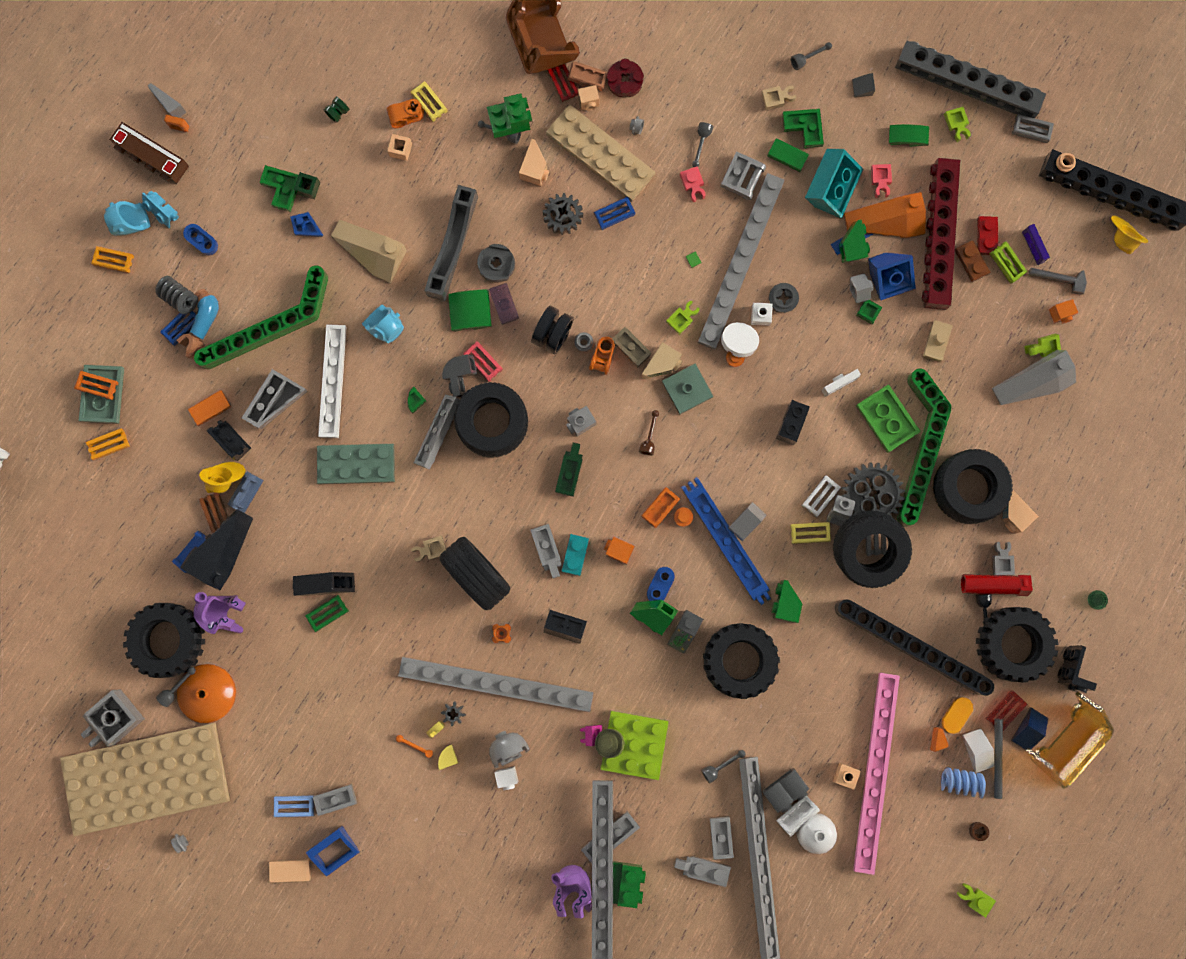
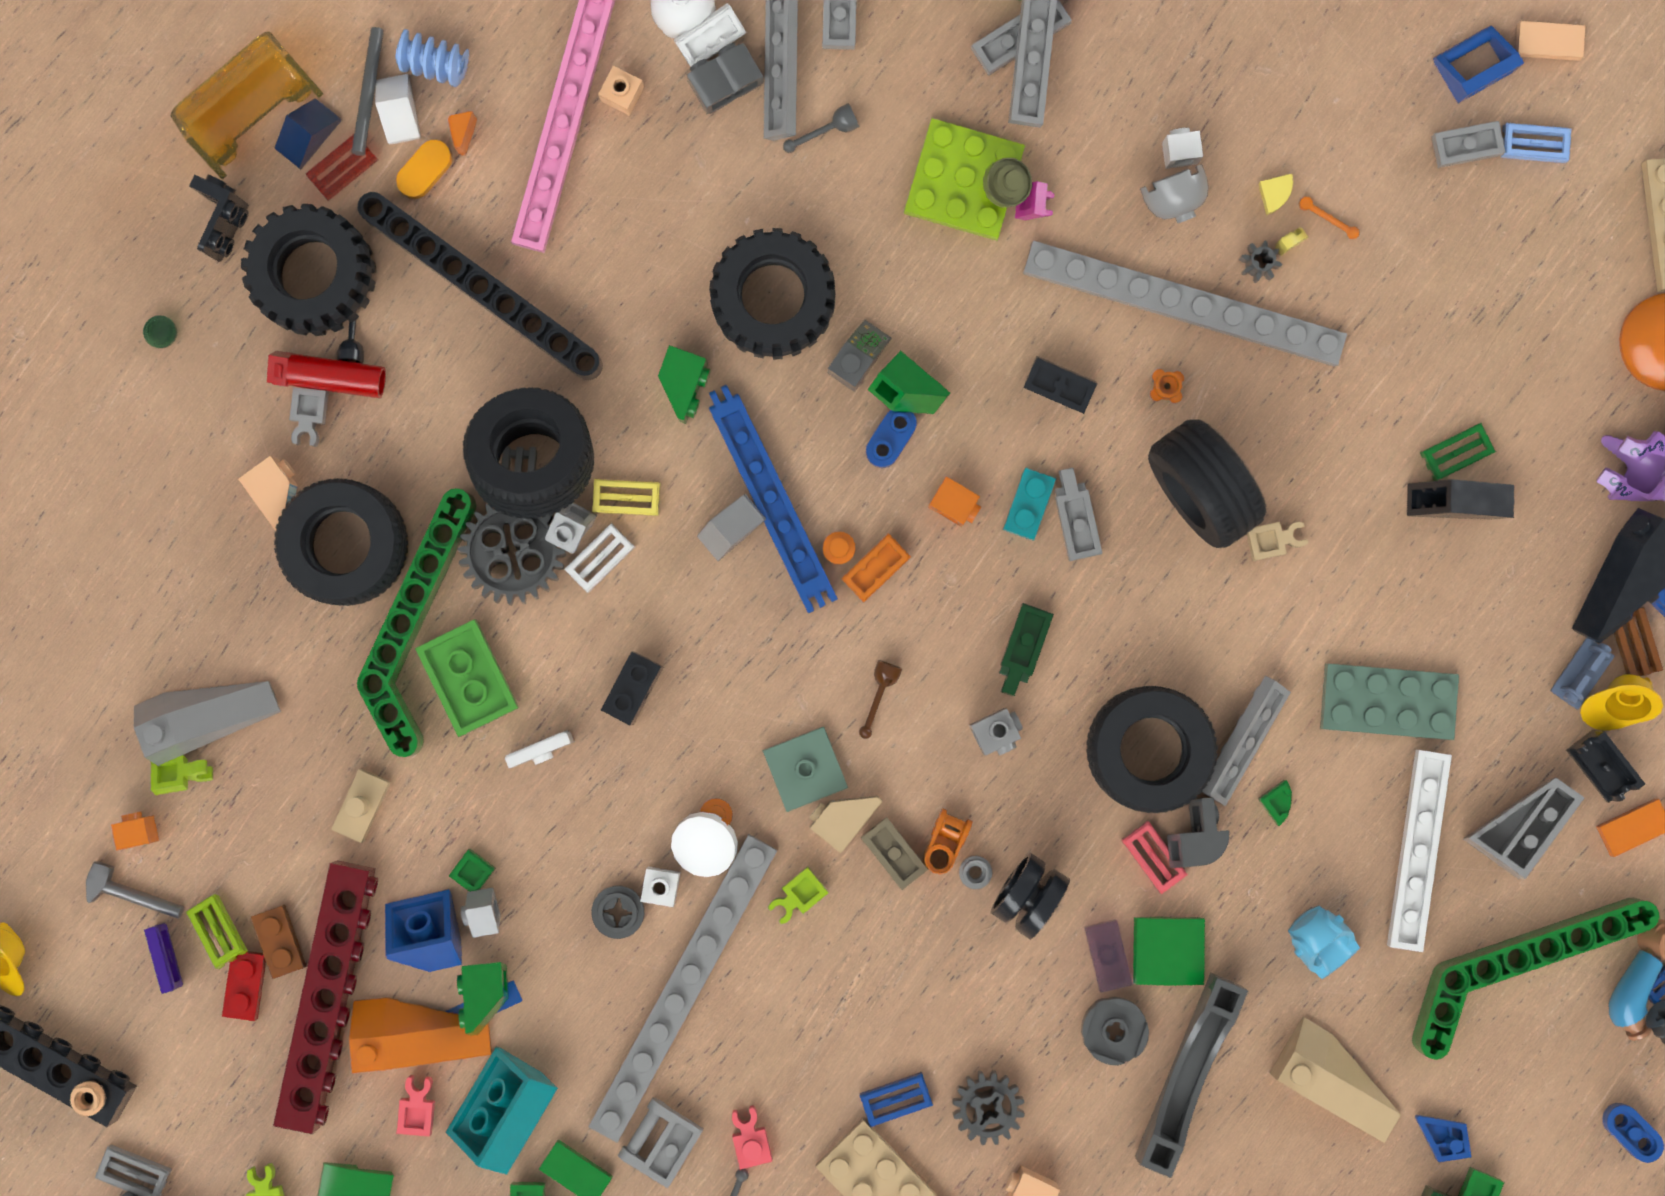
camera: 175 degrees left, 5 degrees up
(693, 259) = (766, 1000): bright green window -> none

